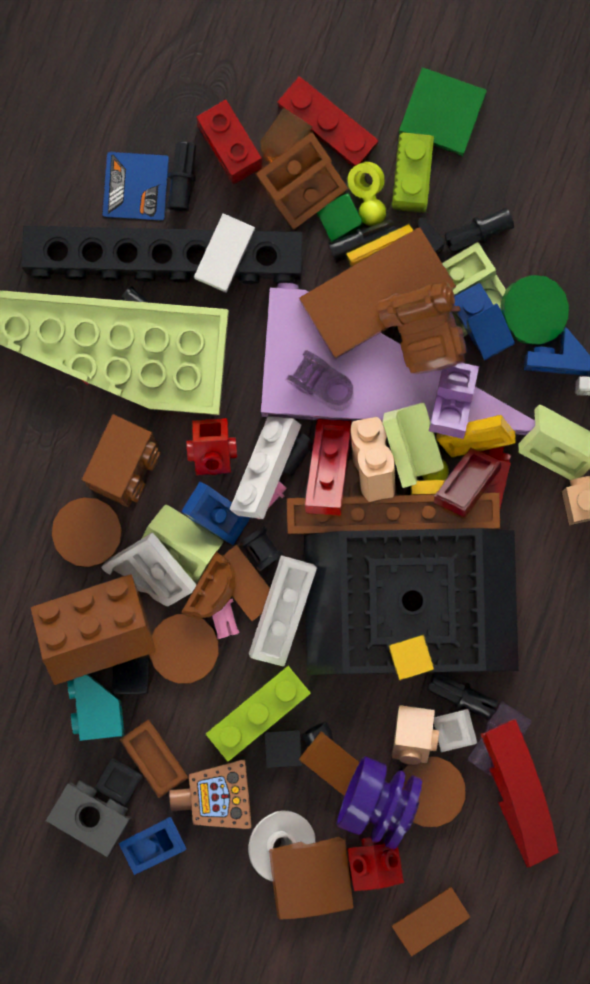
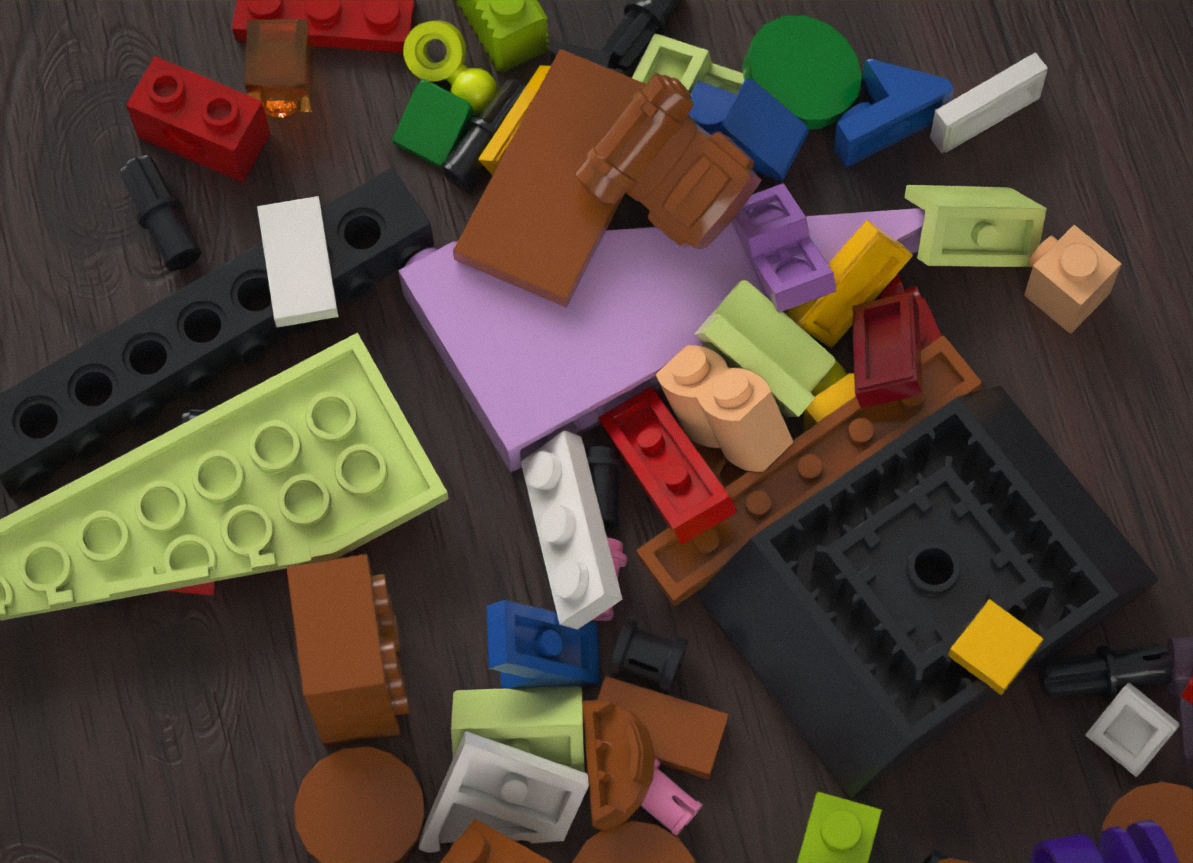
camera: 35 degrees left, 15 degrees down
(135, 186) = (97, 272): blue sticker -> none
(211, 447) = (468, 553): red brick -> none
(282, 611) = (747, 723): white plate -> none
(301, 181) = (341, 103): dark orange slope -> none
(320, 380) = (567, 343): clear purple piece -> none
(414, 735) = (1079, 773): light nougat brick -> none

